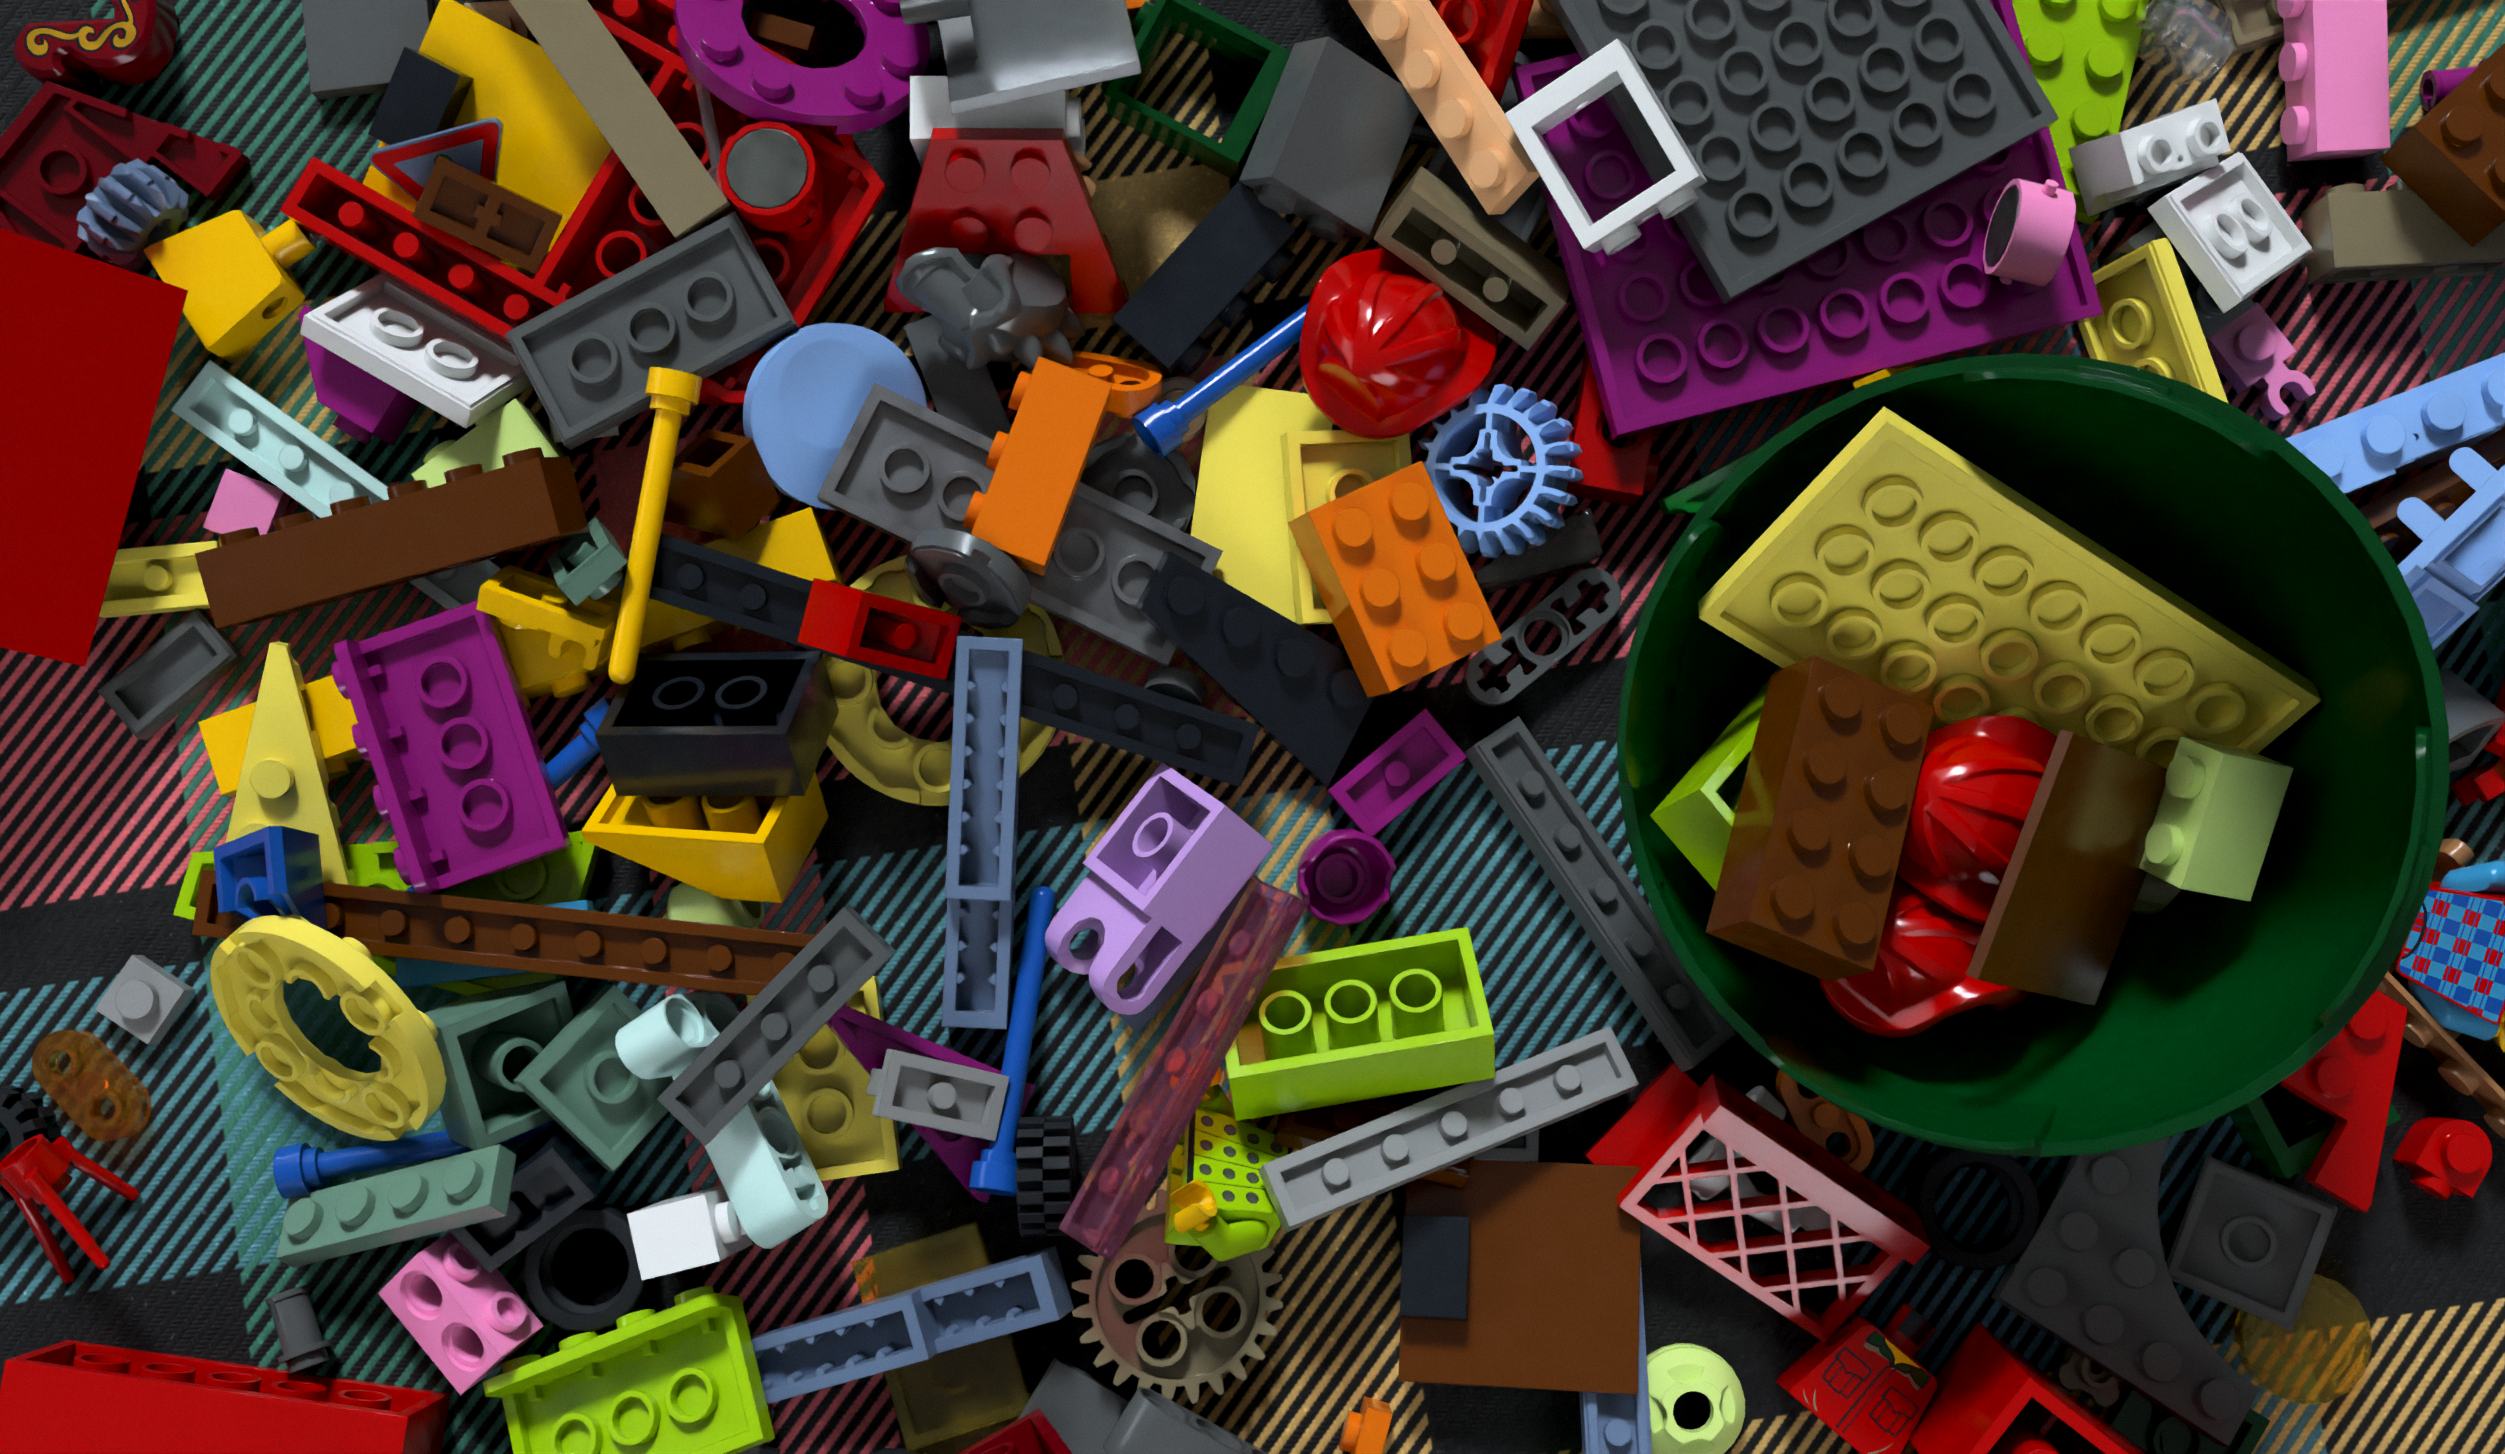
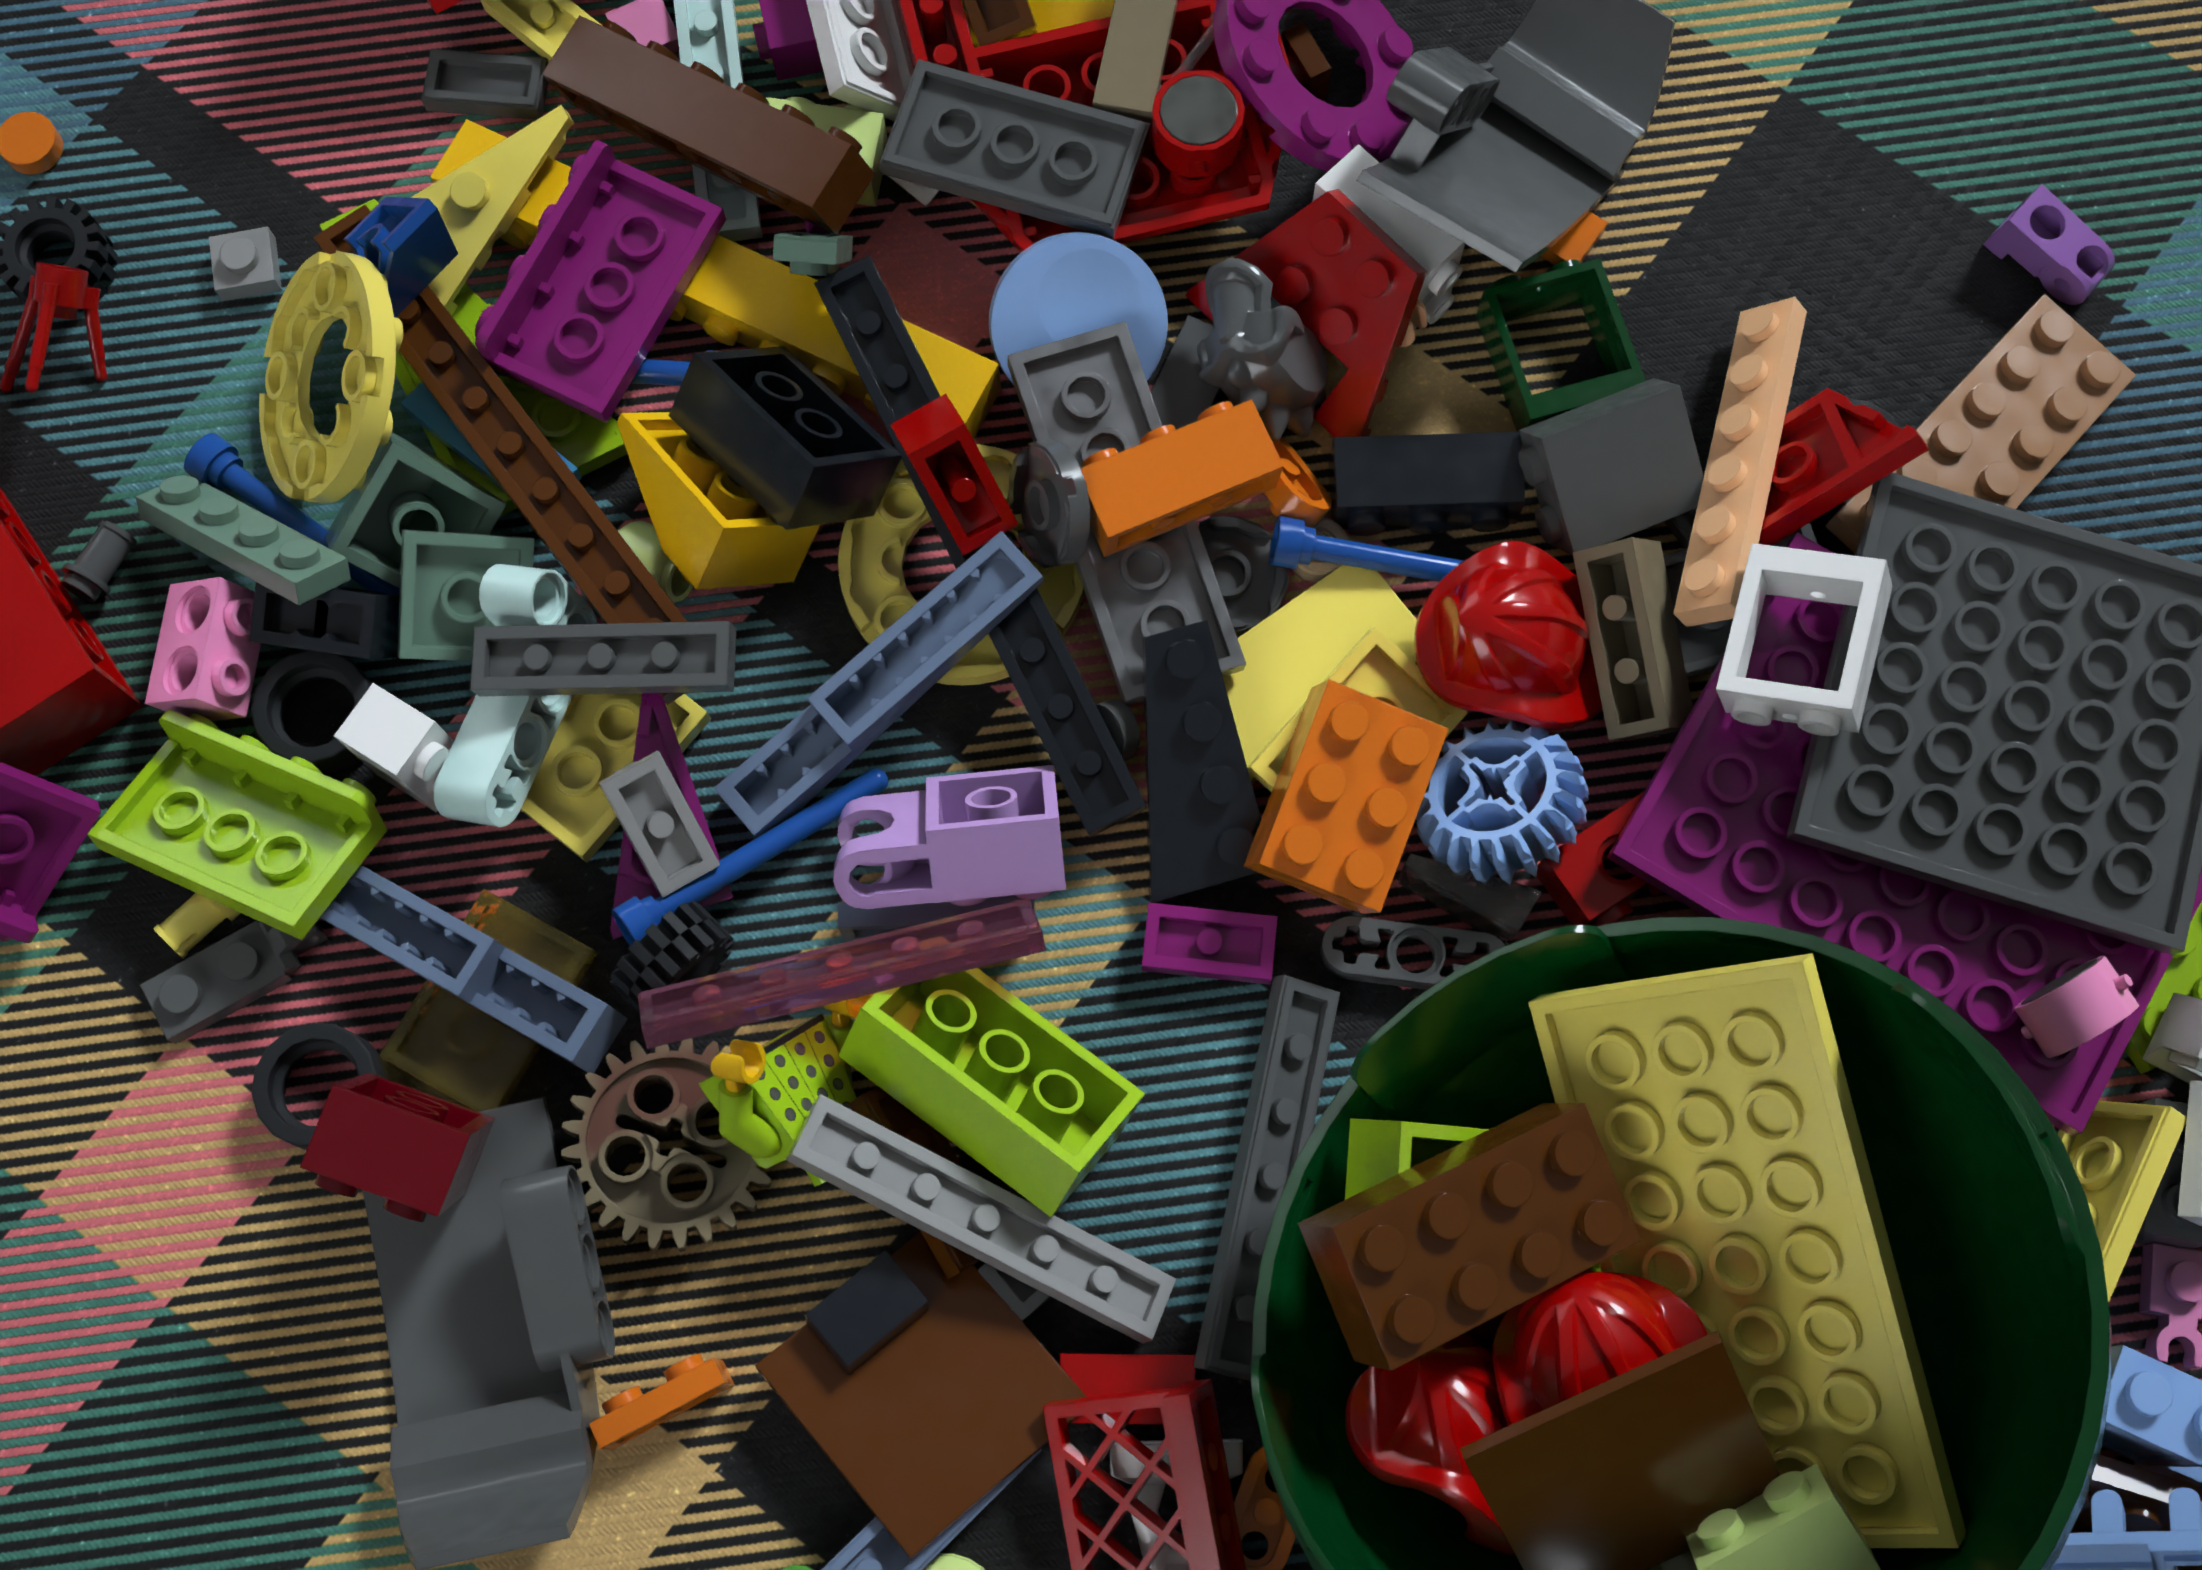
camera: 50 degrees right, 10 degrees down
(91, 1078) = (157, 278): clear orange plate -> none
(537, 603) = (749, 240): yellow plate -> none
(671, 398) = (978, 194): yellow piece -> none
(720, 485) = (949, 286): reddish brown slope -> none
(1344, 876) = (1096, 973): magenta hair -> none

